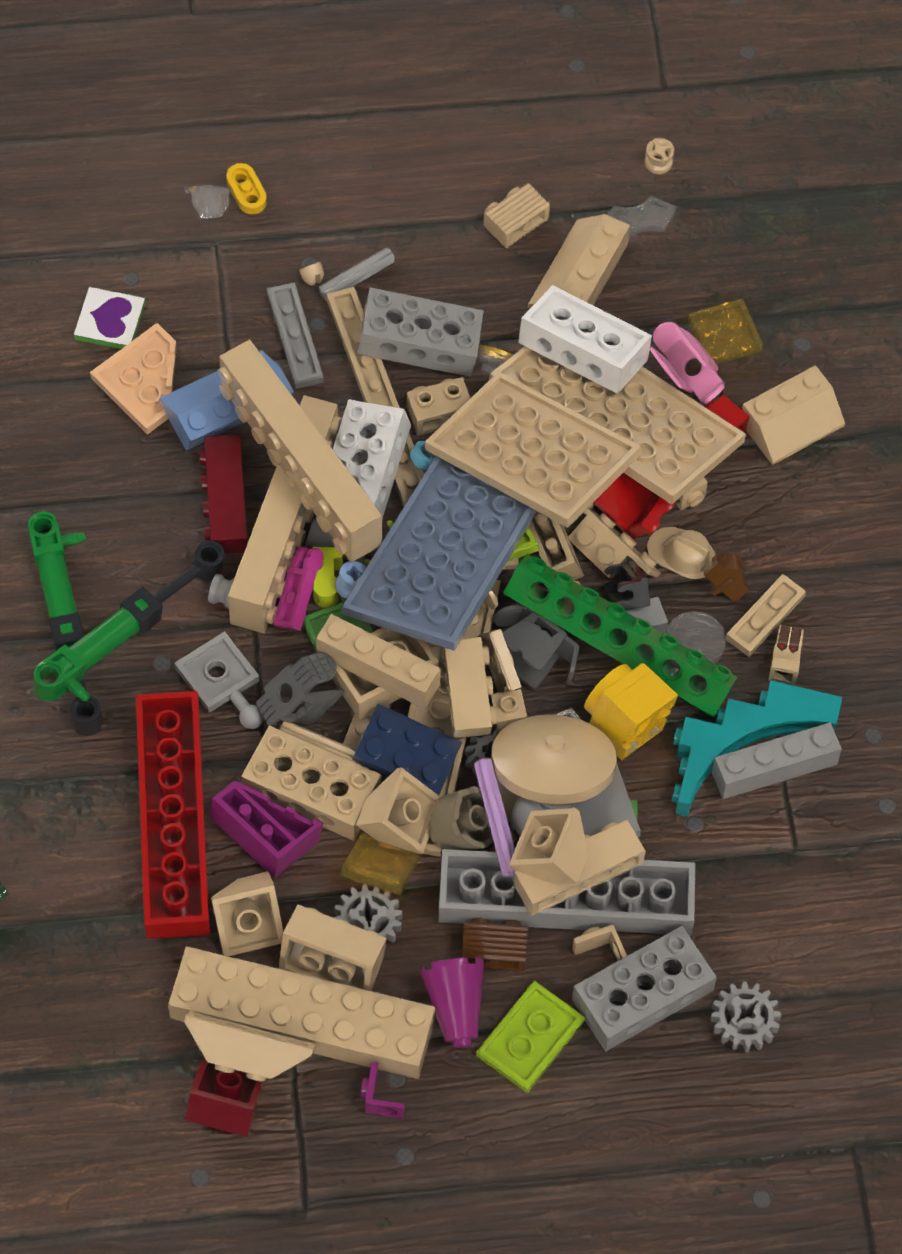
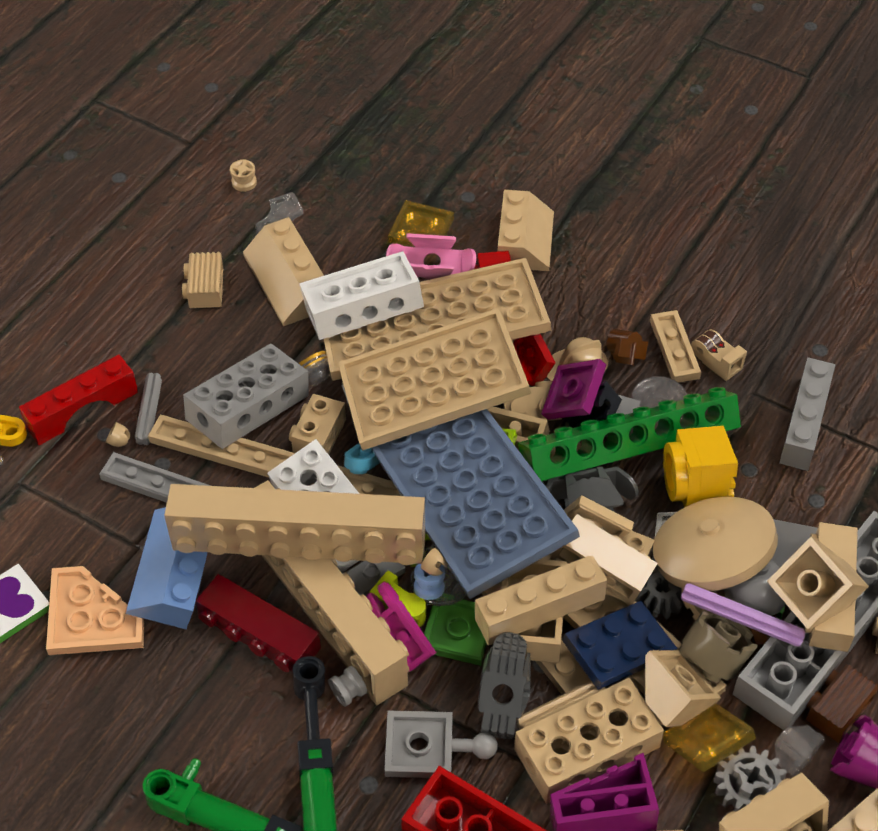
camera: 50 degrees left, 10 degrees down
(350, 226) = (49, 413): none -> red arch
(356, 568) = (433, 562): none -> tan hinge
(425, 935) = (797, 748): none -> clear piece
(623, 562) = (574, 389): none -> magenta plate
(779, 712) = (760, 443): teal arch -> none

